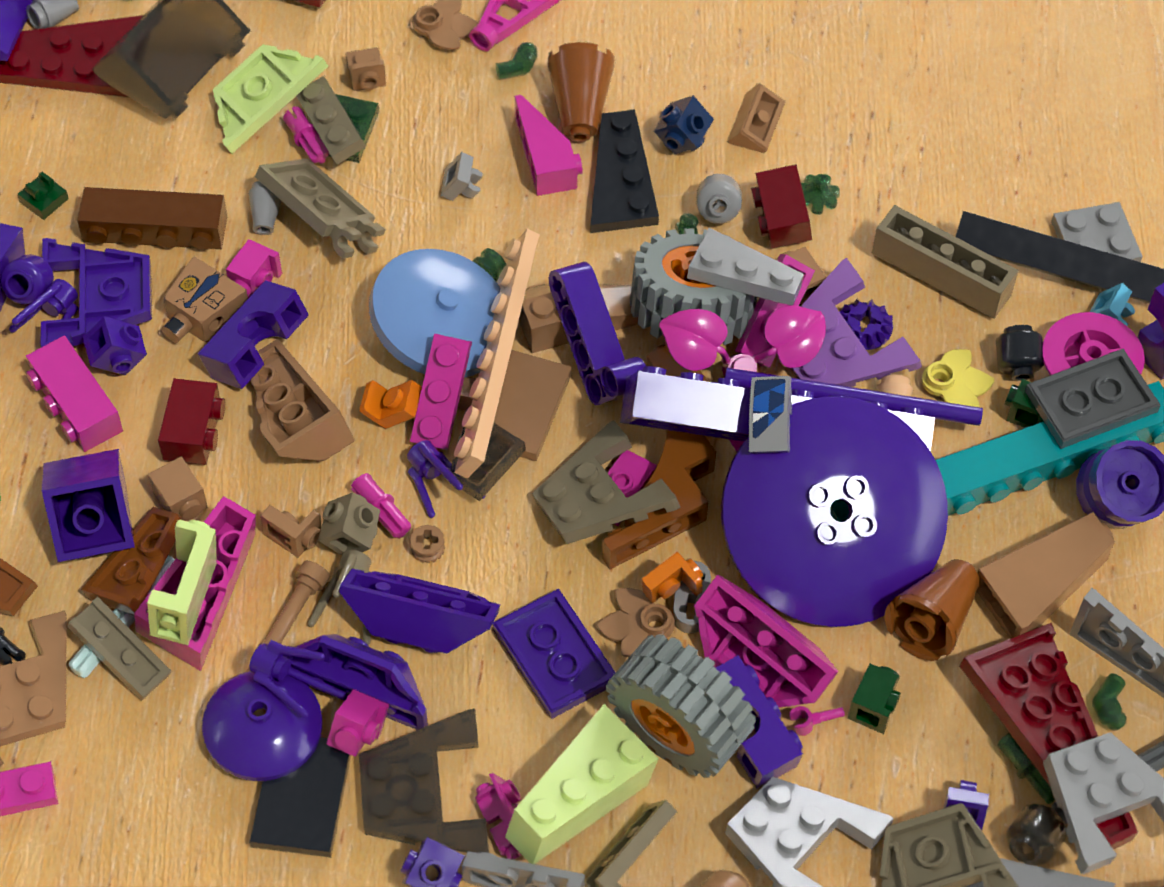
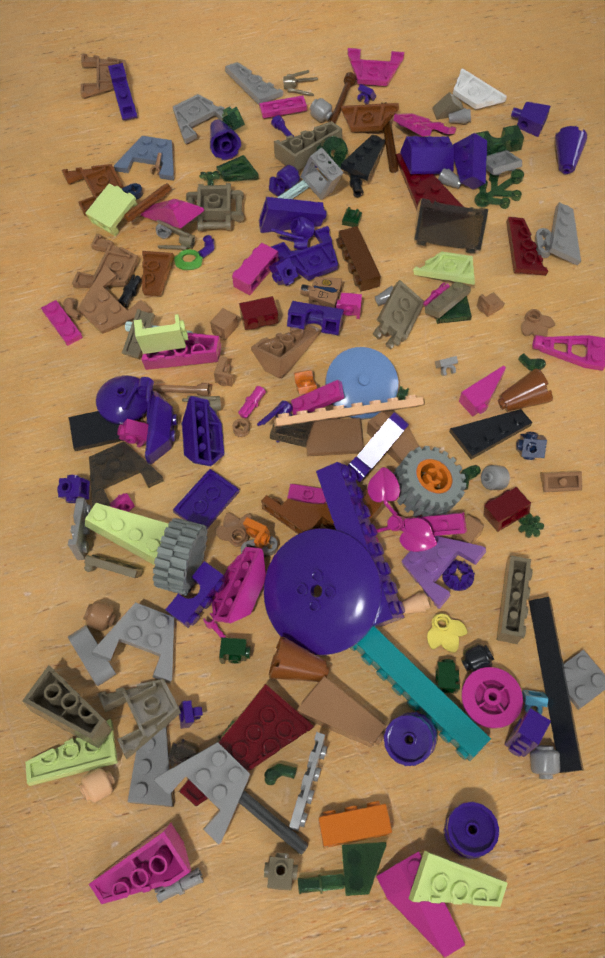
camera: 70 degrees right, 5 degrees up
(87, 505) = (199, 293): dark purple slope -> none
(130, 572) = (192, 323): dark orange wing -> none
(349, 524) = (233, 385): dark tan brick -> none
(585, 499) = (286, 481): dark tan wing -> none
(743, 269) = (440, 496): light grey wing -> none
(770, 414) = (348, 529): slope -> none
(938, 409) = (402, 582): dark purple piece -> none
(1092, 398) = (459, 704): dark grey tile -> none

